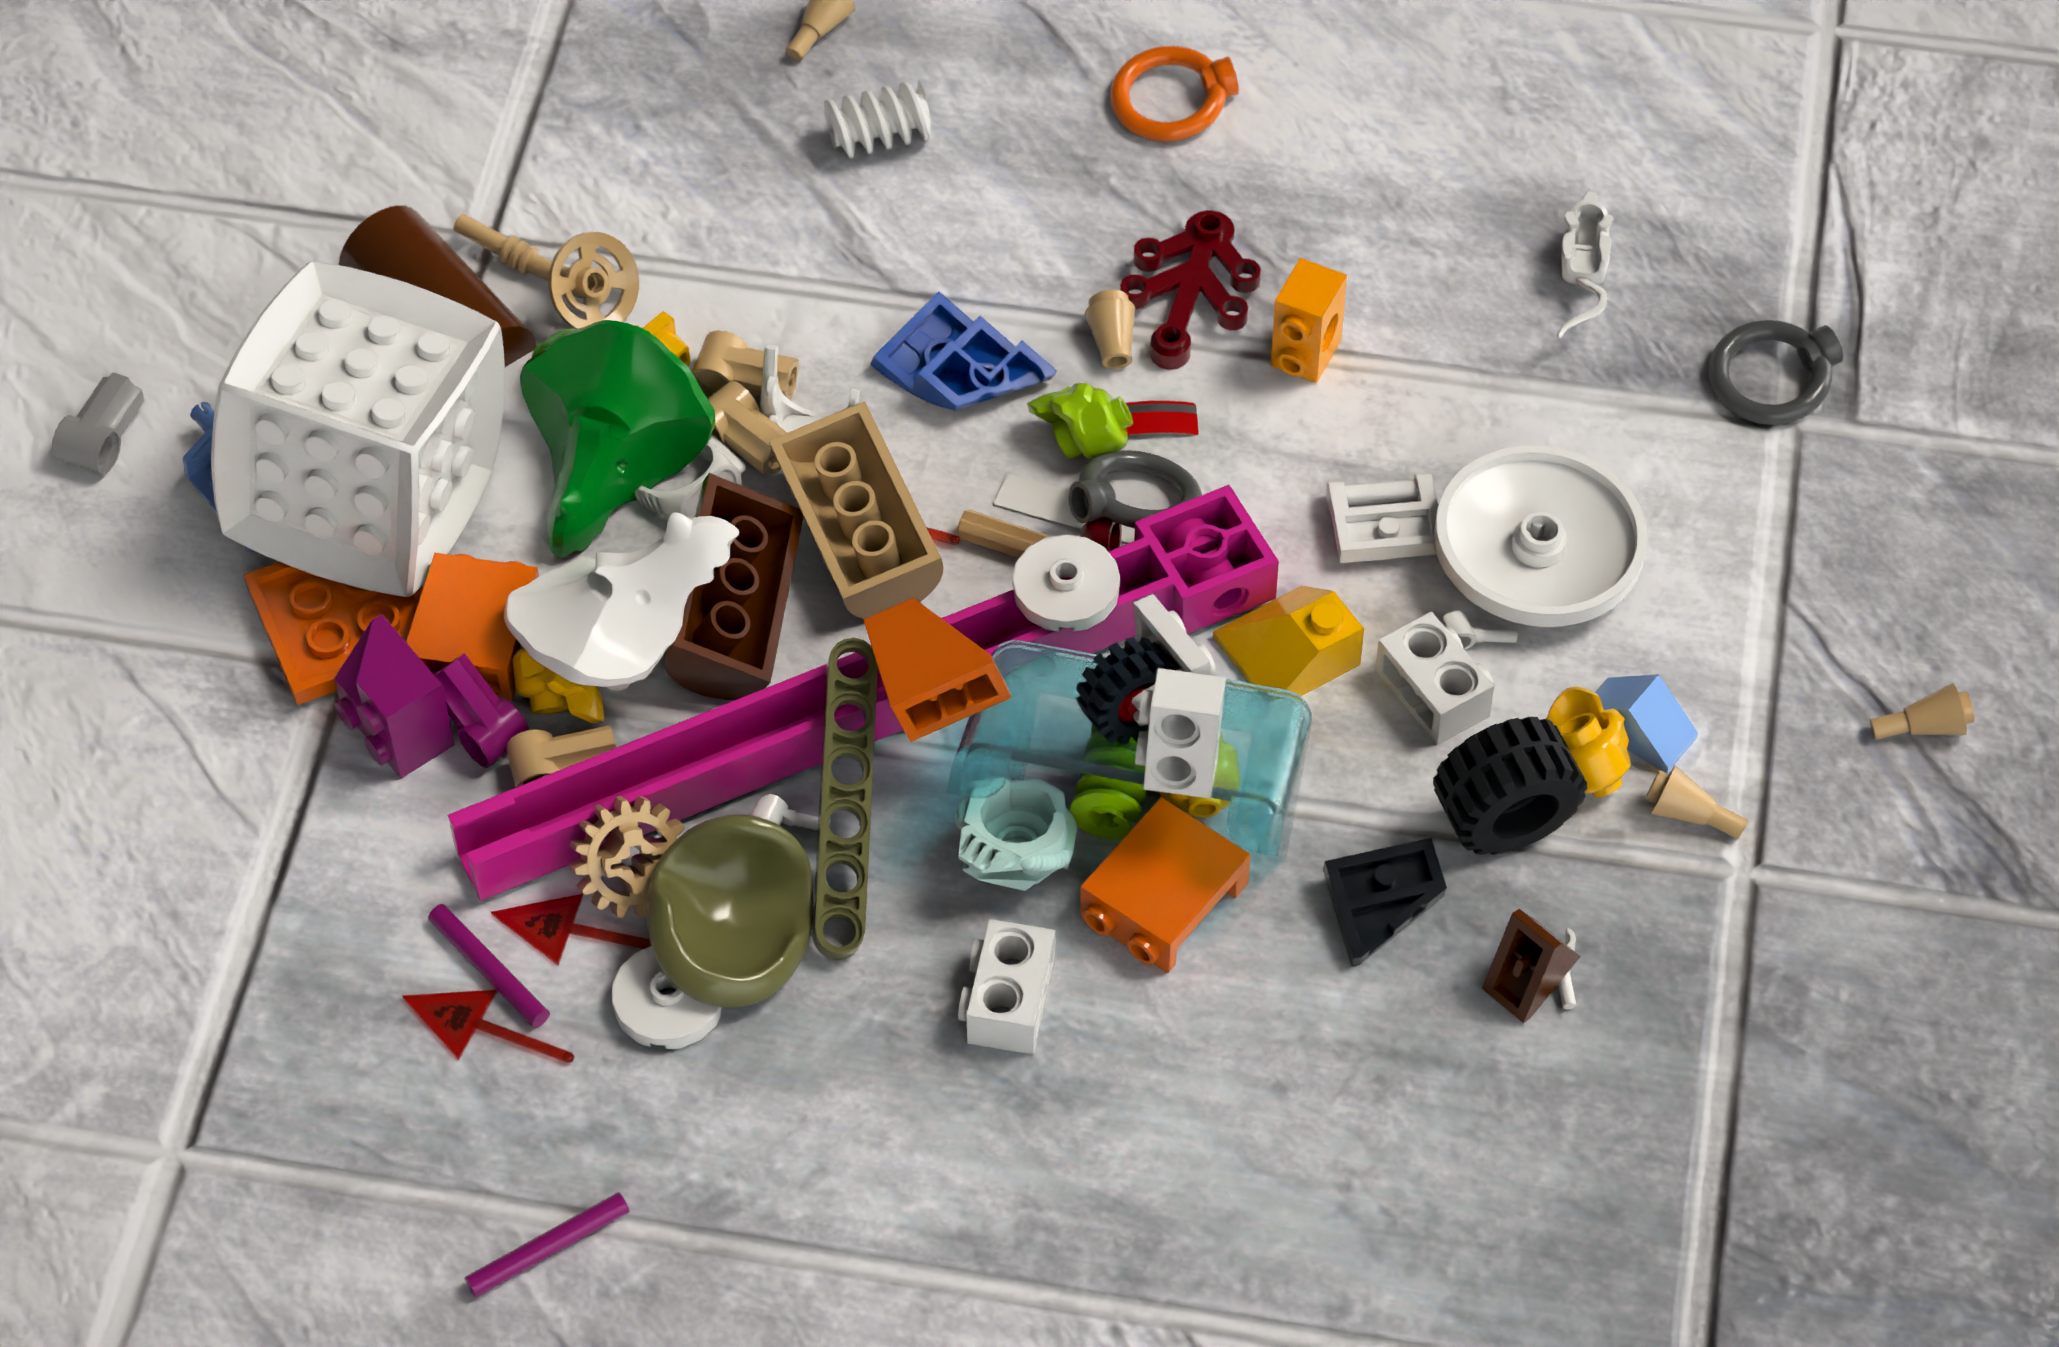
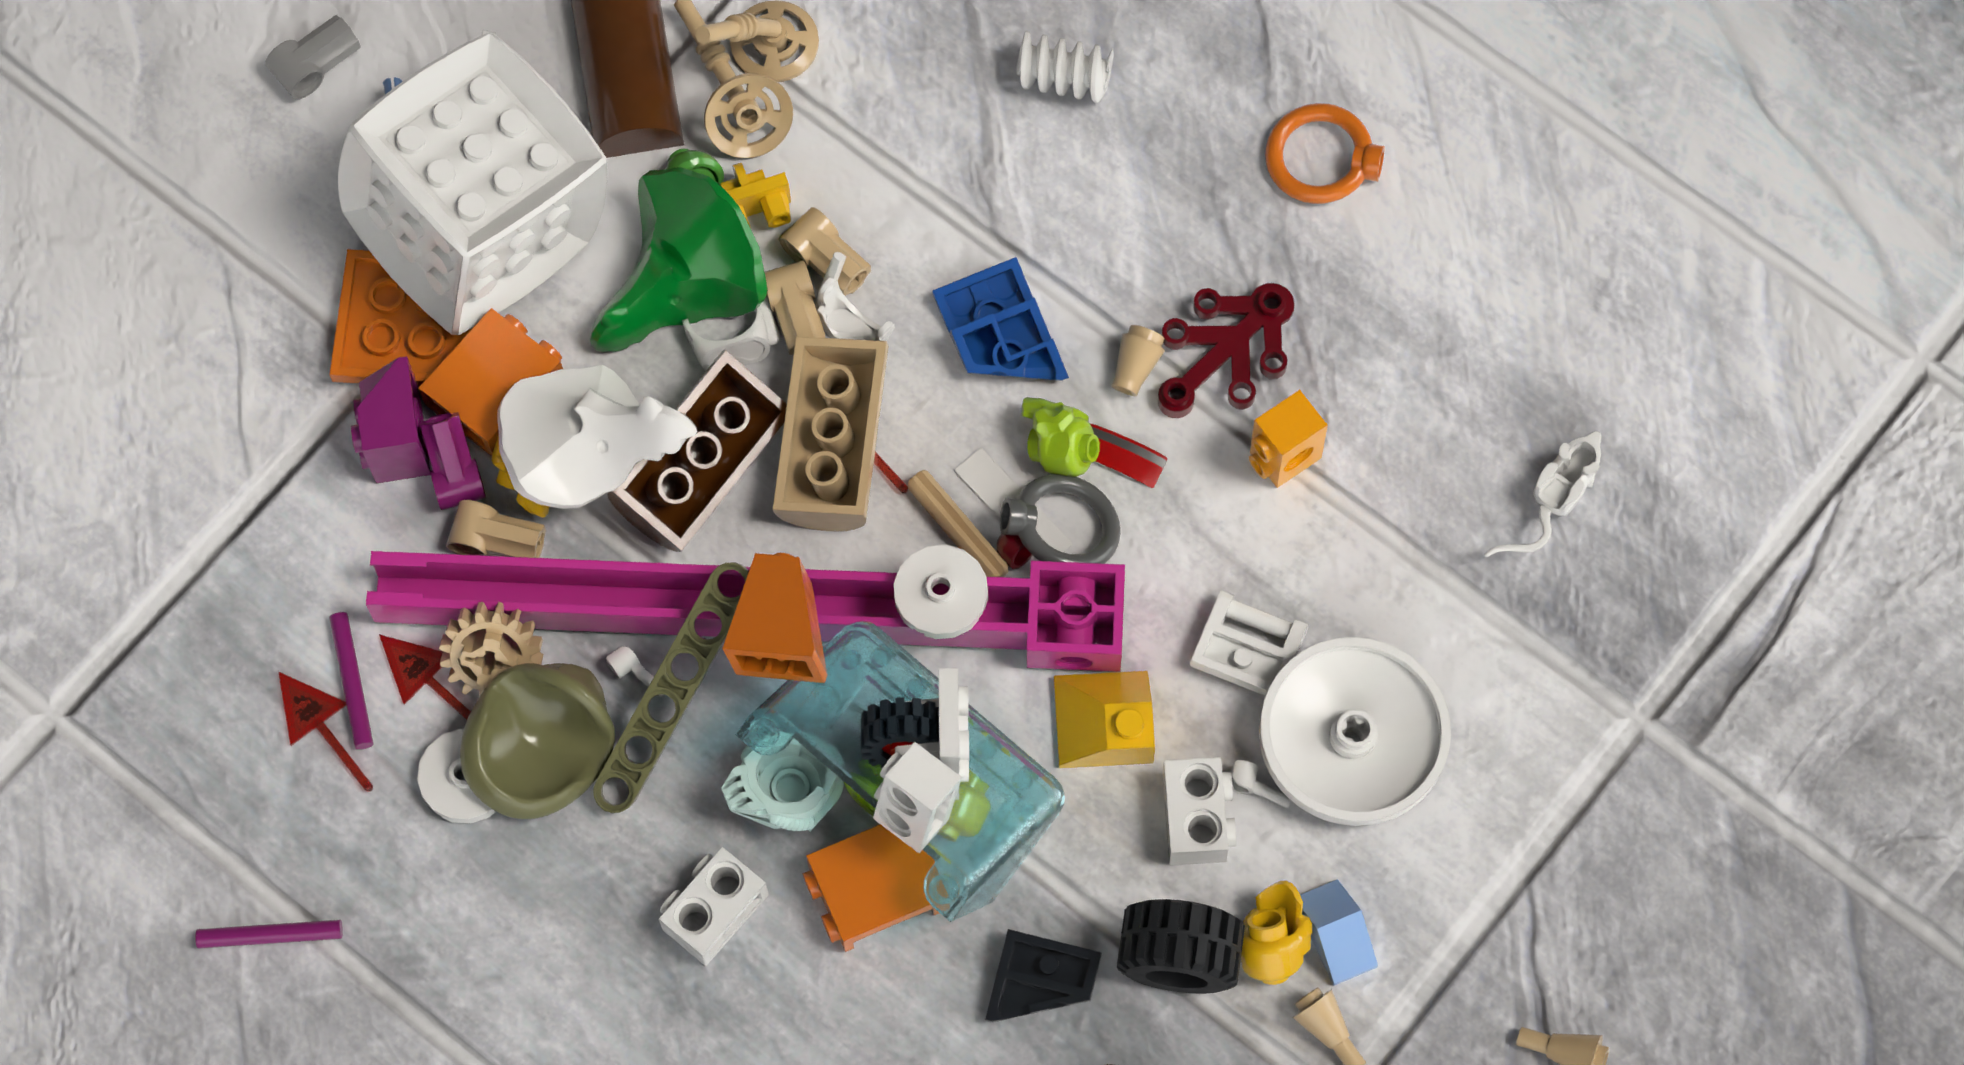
camera: 30 degrees right, 15 degrees up
(570, 214) = (769, 37): none -> tan dish
(1816, 350) = (1699, 671): dark grey piece -> none

